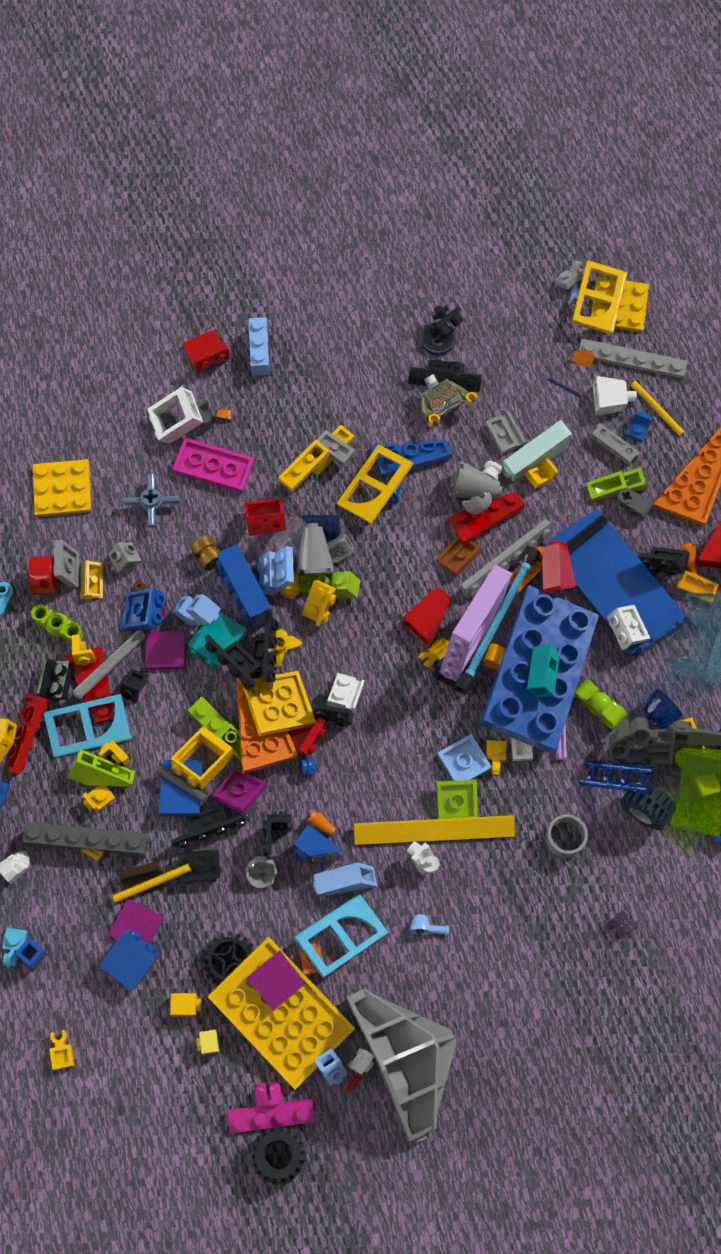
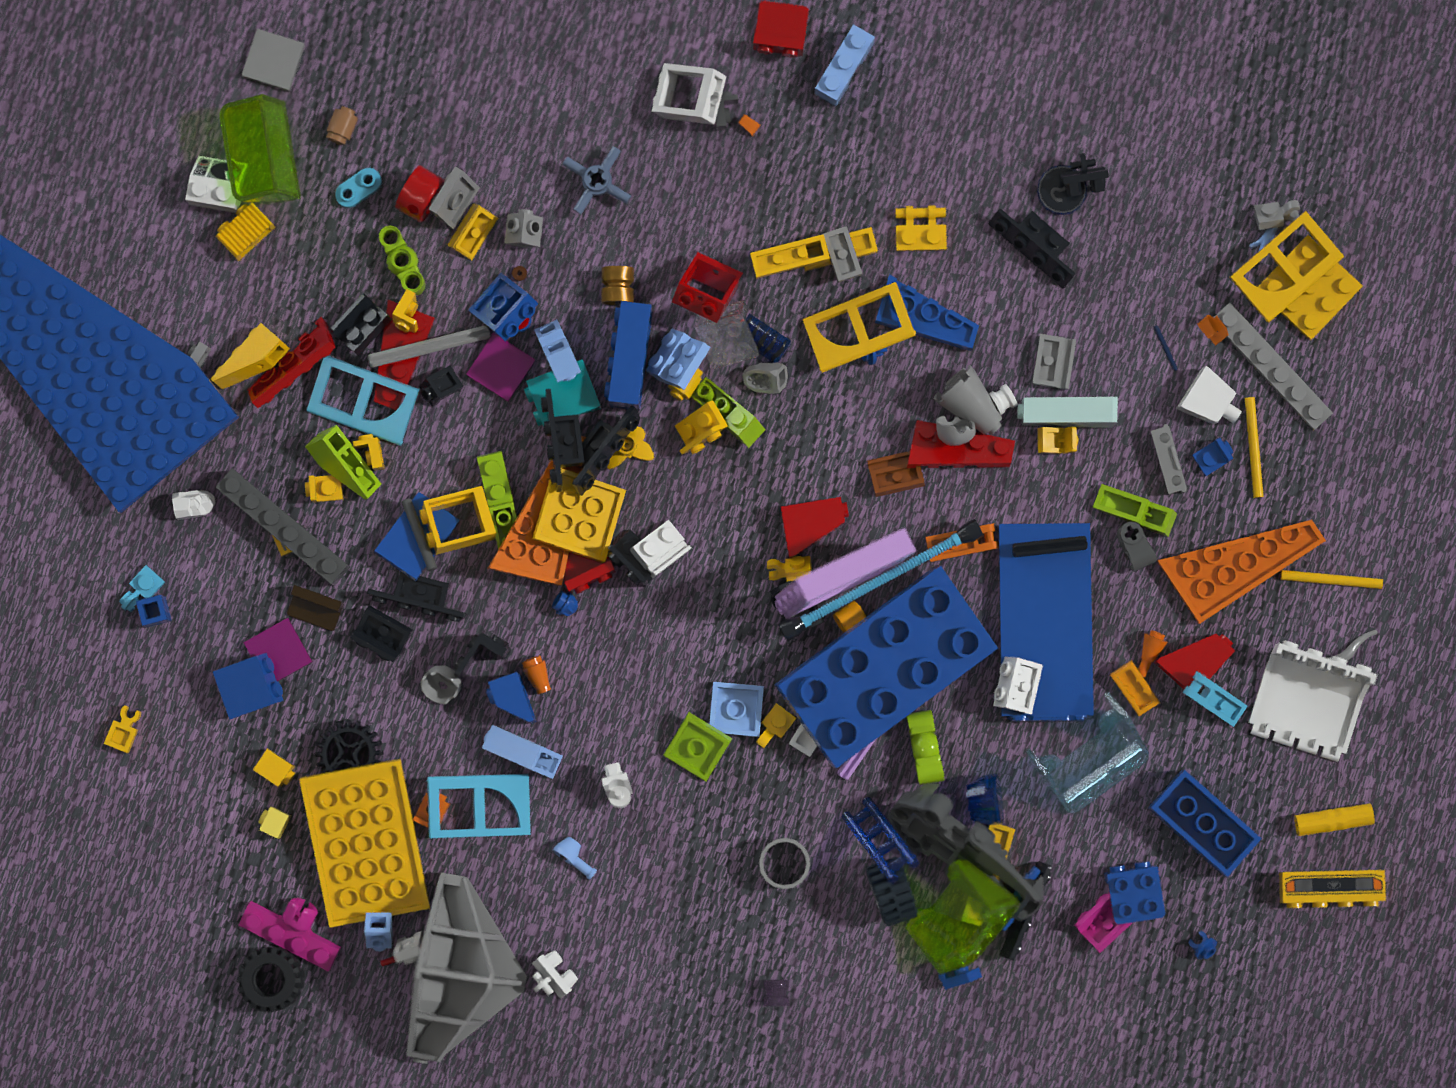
camera: 40 degrees right, 15 degrees up
(62, 488) = (509, 95): yellow plate -> none
(151, 883) = (321, 619): yellow bar -> none
(213, 465) = (695, 180): dark pink plate -> none
(239, 791) = (474, 583): magenta tile -> none
(276, 980) = (378, 809): magenta tile -> none
(314, 551) = (731, 368): light grey cone -> none
(373, 414) = (921, 237): none -> yellow plate
(434, 830) = (651, 761): yellow tile -> none
(443, 398) = (1008, 274): torso -> none
(468, 1018) = (550, 979): none -> white hips
(508, 557) = (940, 515): light grey plate -> none
(543, 670) = (880, 675): teal brick -> none
(557, 567) = (987, 566): red slope -> none
(665, 560) = (1119, 637): black bracket -> none

